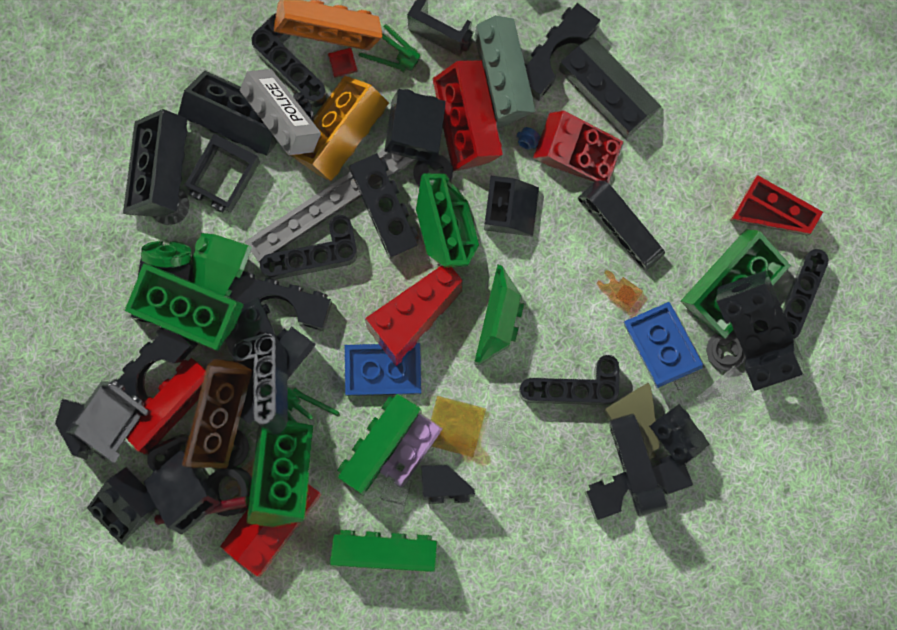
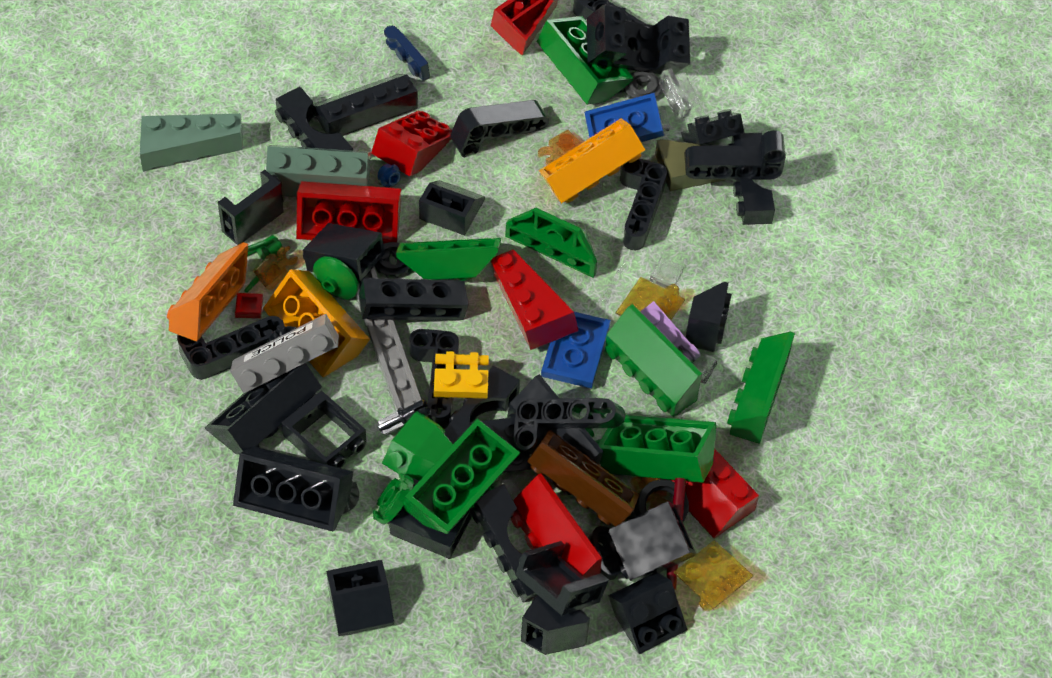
camera: 75 degrees left, 25 degrees down
(66, 256) = (360, 597): none -> black slope
(173, 556) = (713, 575): none -> clear yellow hinge
(252, 237) = (400, 418): none -> black axle
(299, 277) = (461, 382): none -> yellow plate
(380, 126) = (336, 277): none -> green dish
(384, 70) = (272, 268): none -> clear orange plate
(598, 324) = (592, 160): none -> light orange slope
(687, 106) = (406, 51): none -> dark blue hinge

